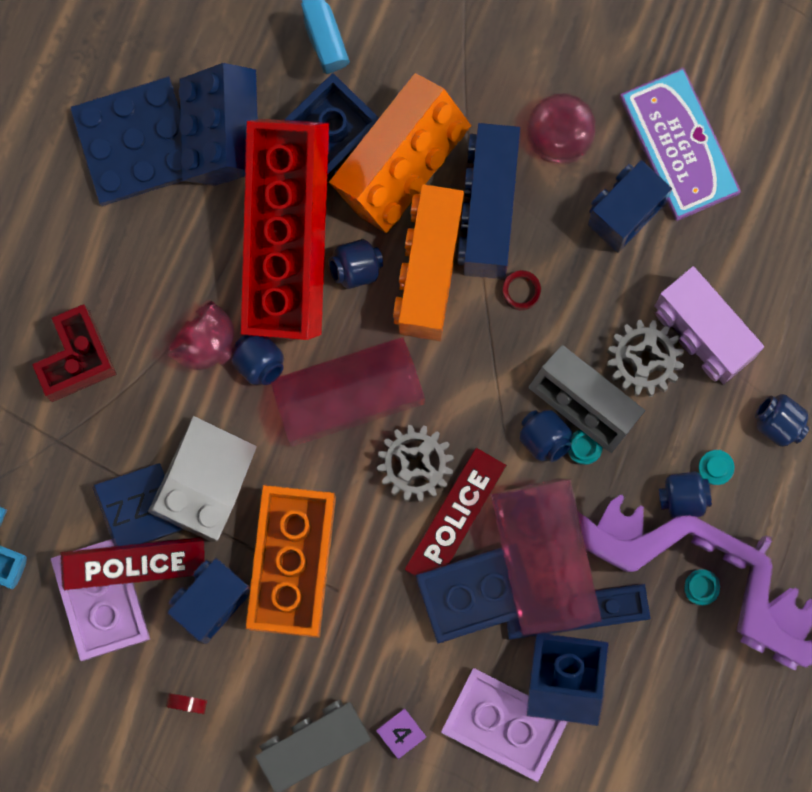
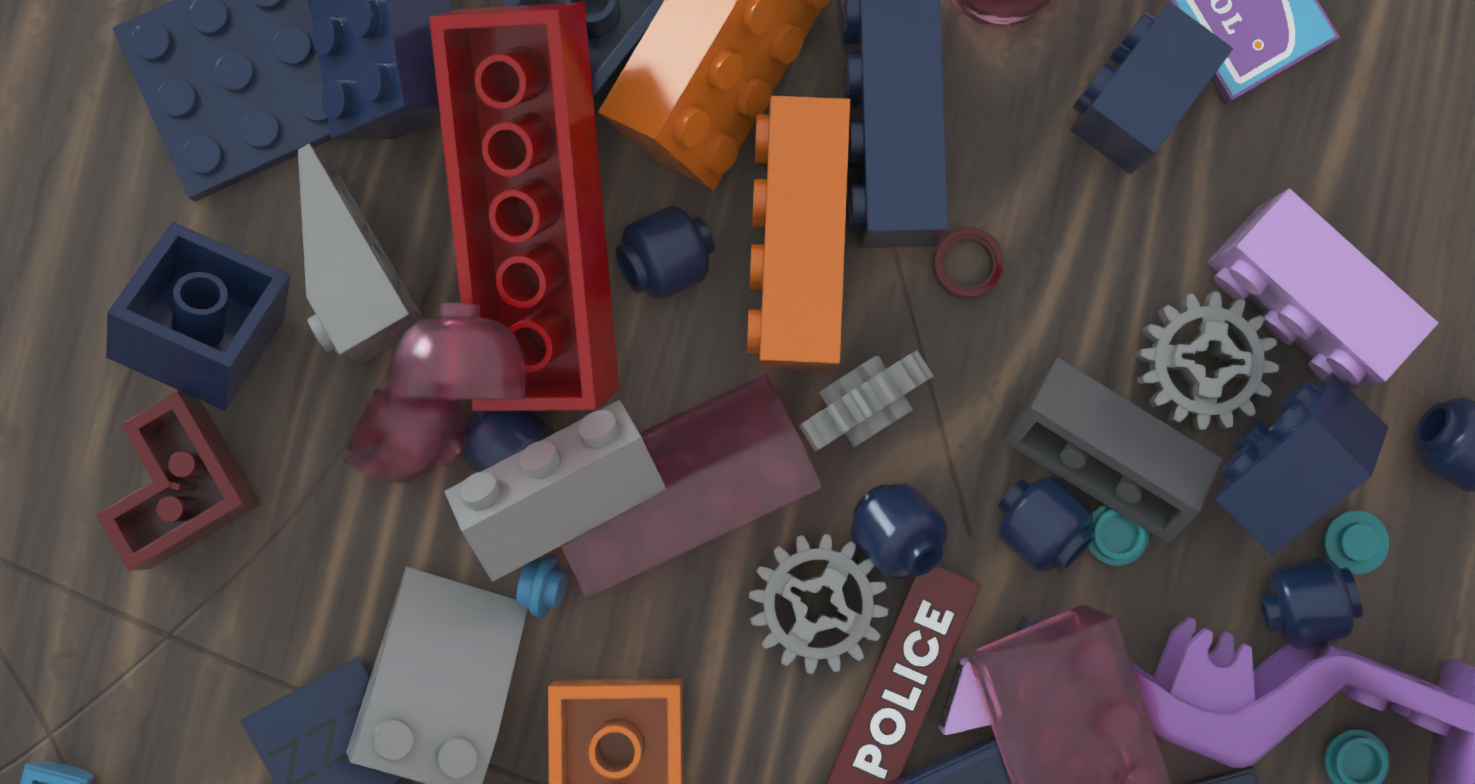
camera: 10 degrees left, 5 degrees up
(99, 266) = (197, 315): none -> dark blue brick
(183, 257) = (347, 273): none -> light grey slope
(238, 302) = (458, 358): none -> clear pink cylinder
(265, 435) = (542, 585): none -> dark azure plate
(280, 380) = (555, 490): none -> light grey brick
(454, 354) = (866, 400): none -> light grey gear
(464, 428) = (899, 531): none -> dark blue head
(489, 528) = (964, 703): none -> lavender slope
(684, 413) = (1301, 462): none -> dark blue brick

